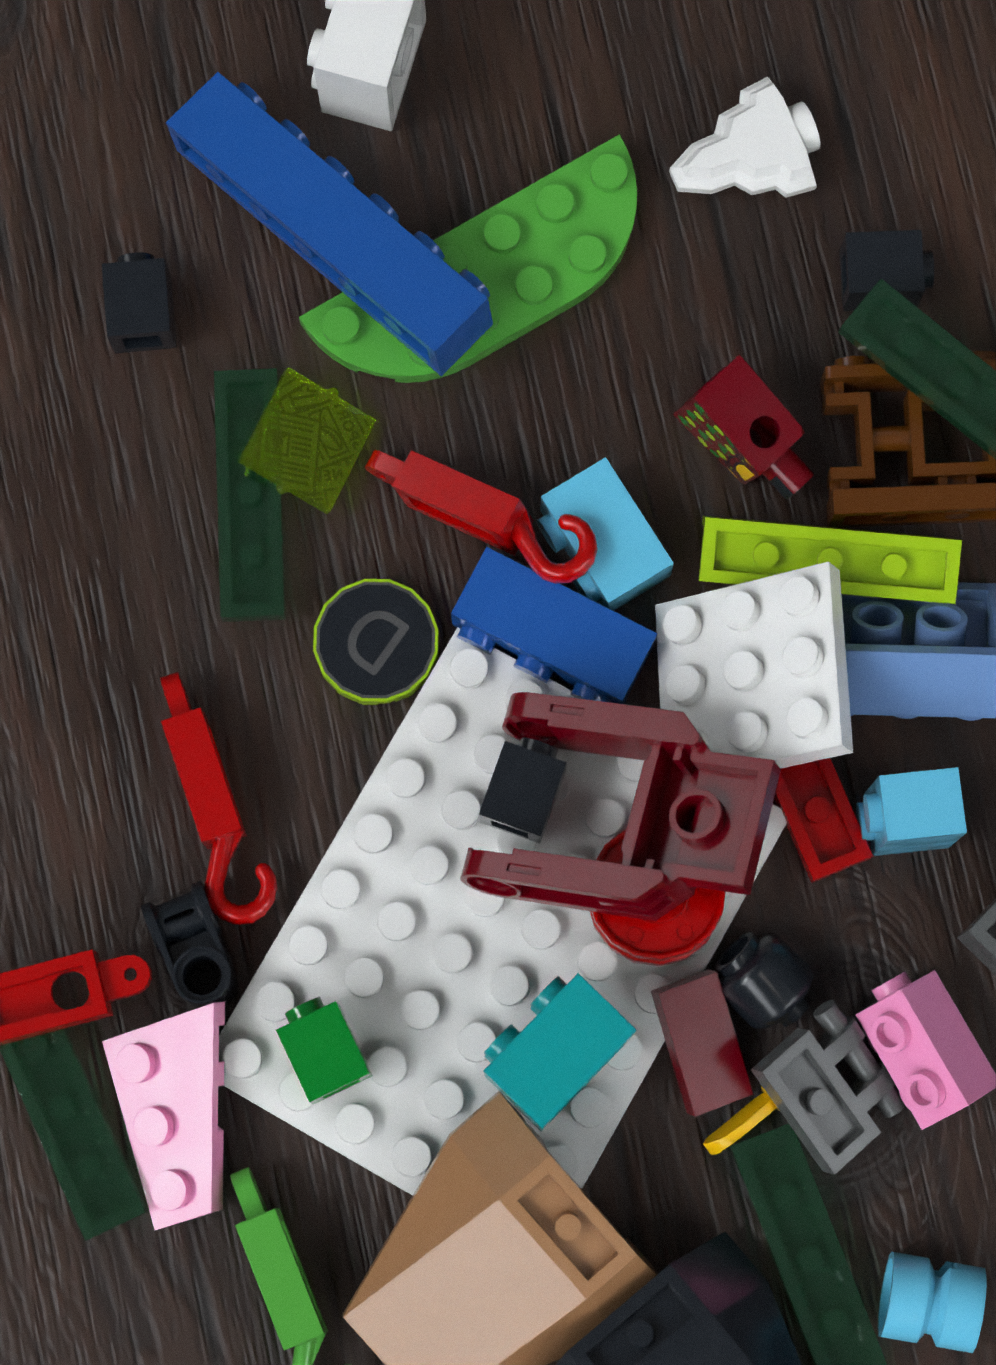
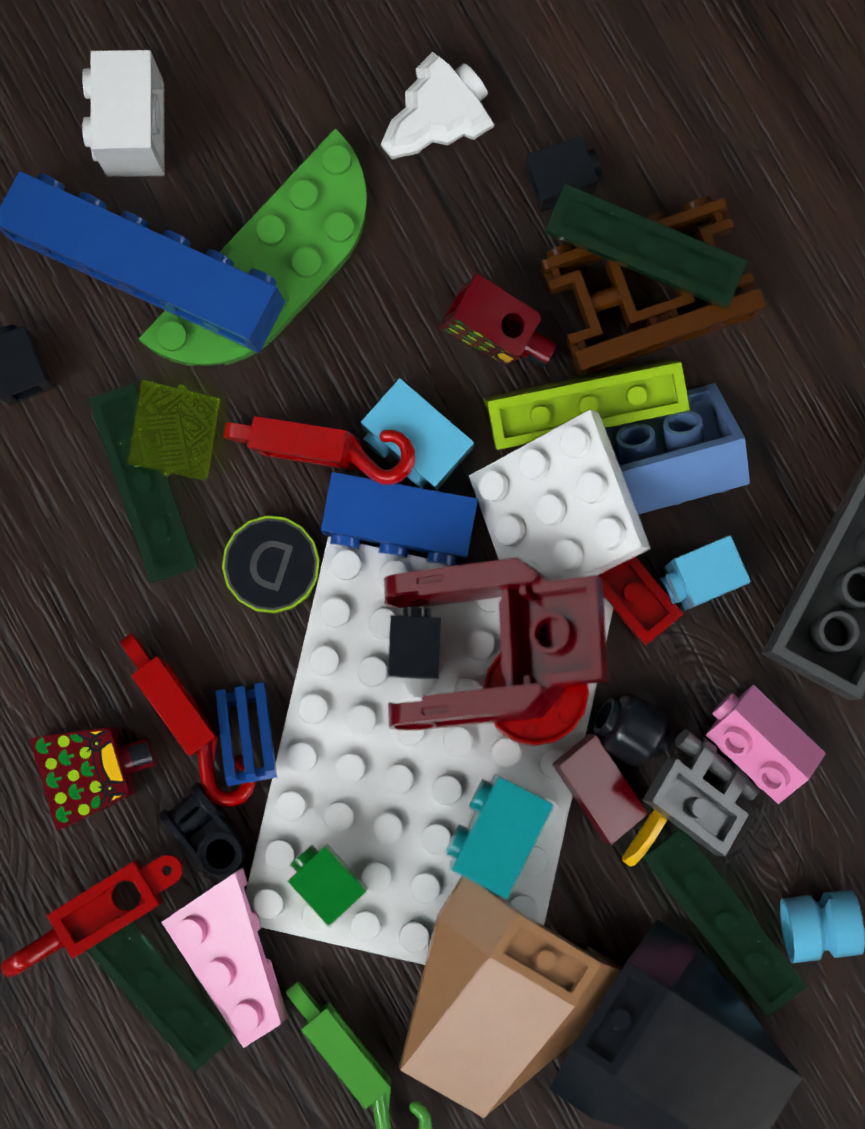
camera: 20 degrees left, 5 degrees up
(71, 826) = (88, 771): none -> torso
(286, 796) = (241, 698): none -> blue tile

